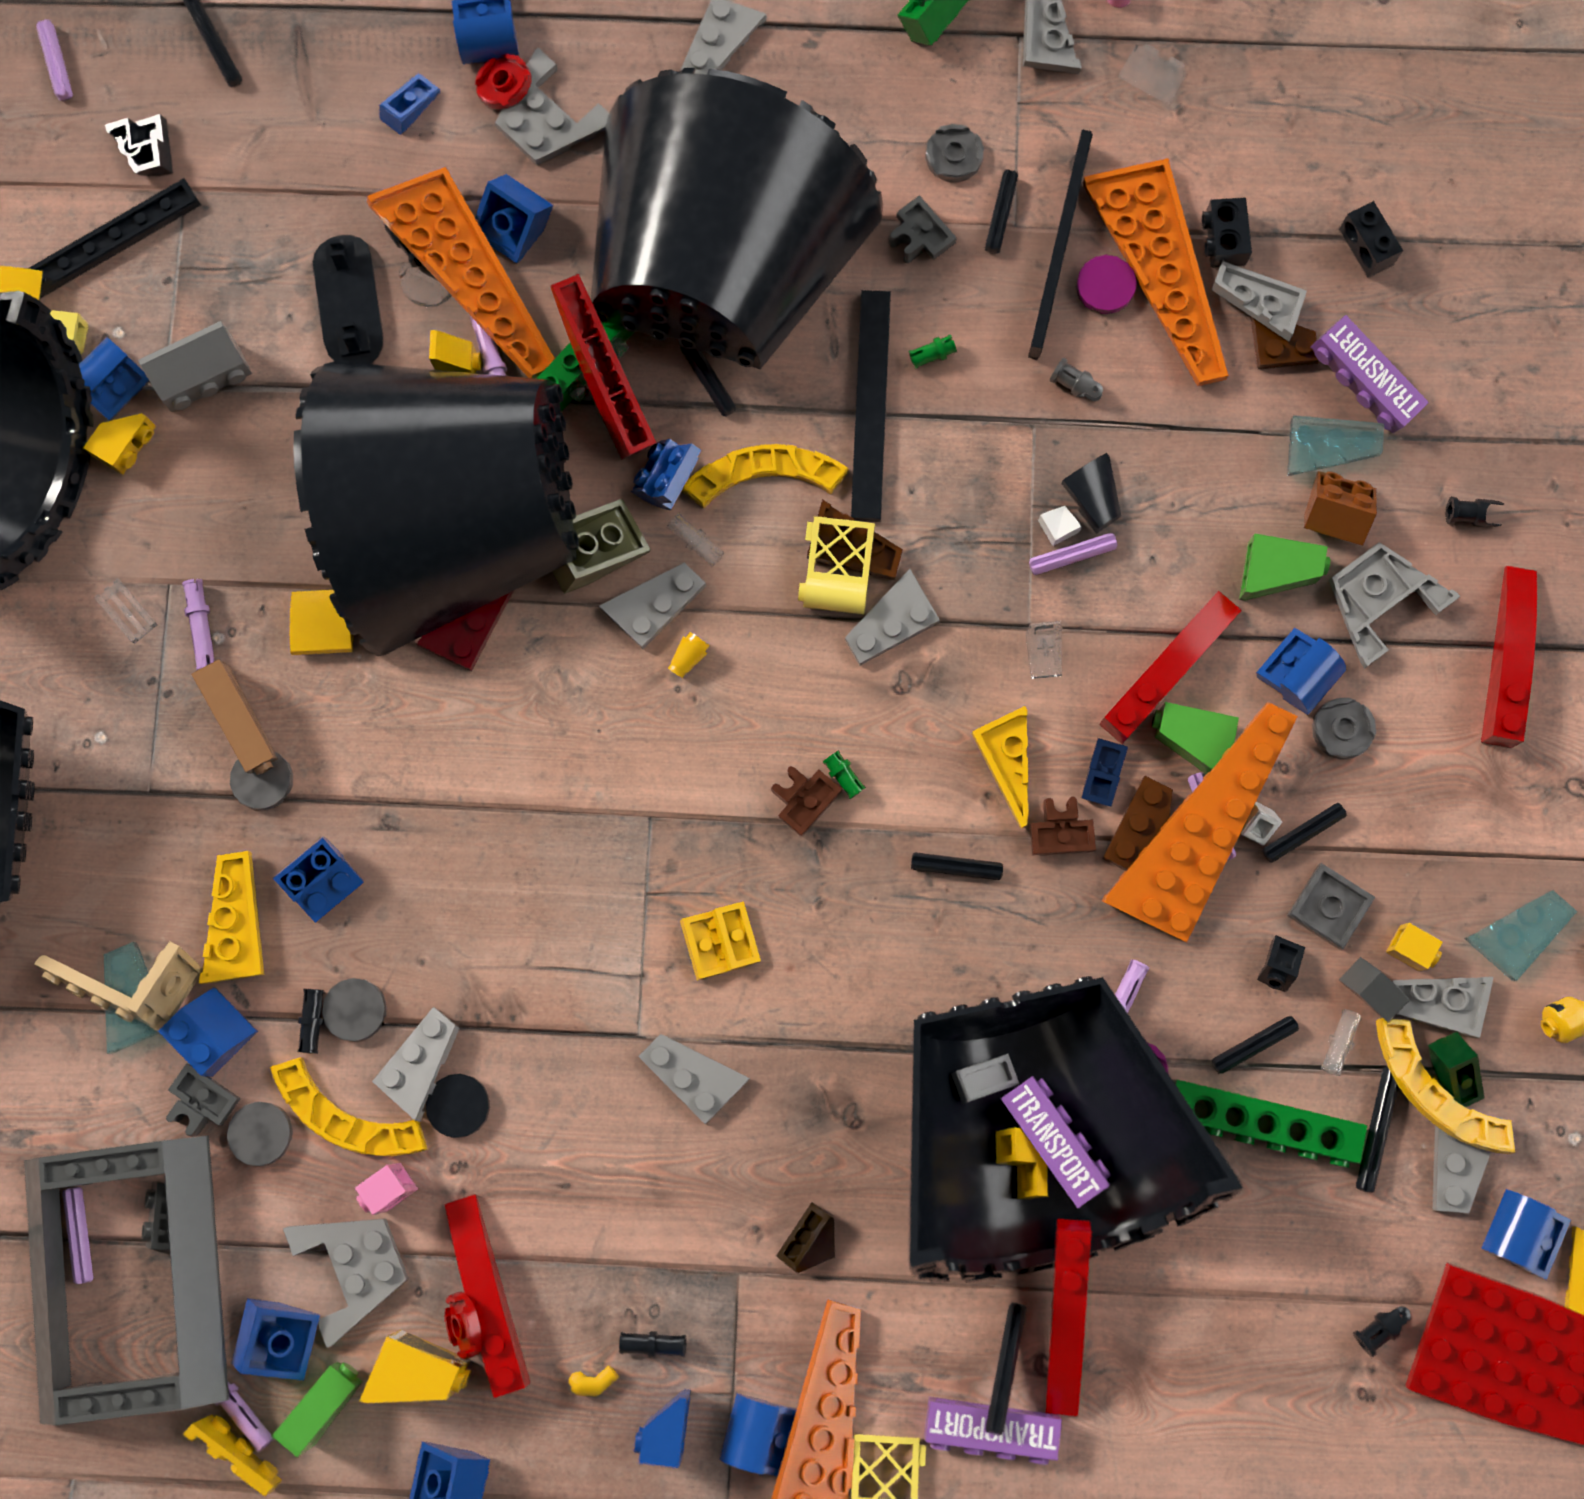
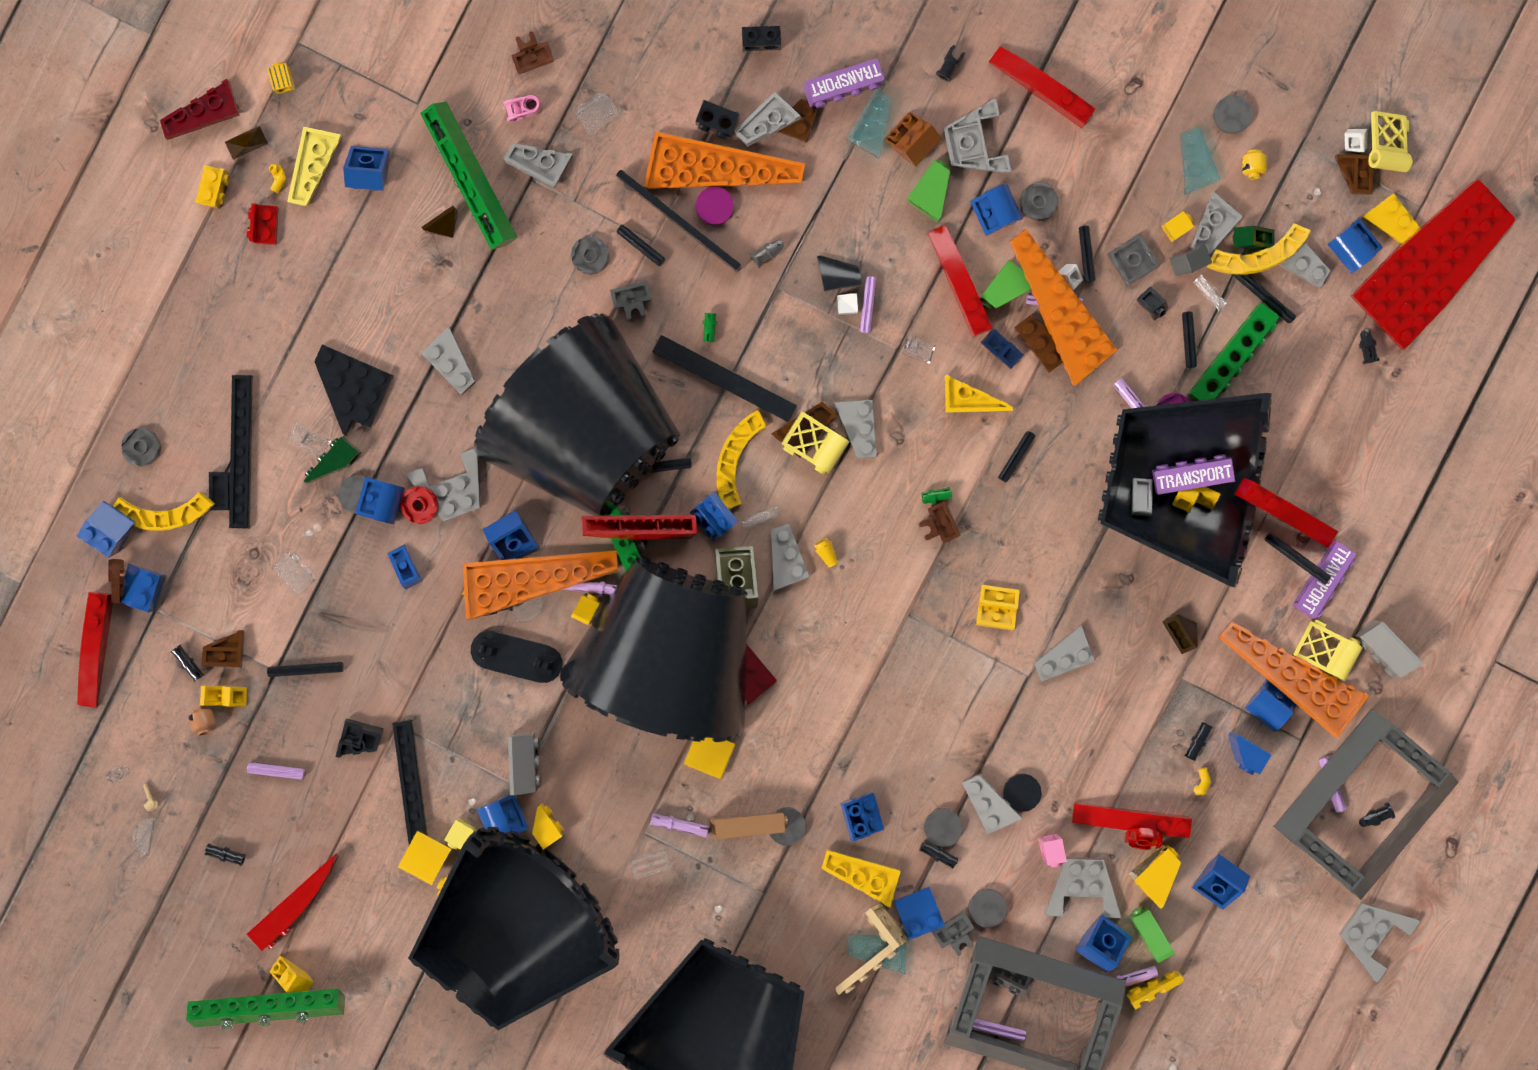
camera: 75 degrees left, 10 degrees up
(337, 1125) = (1001, 864): yellow tile -> none
(1062, 831) = (1024, 388): copper plate -> none

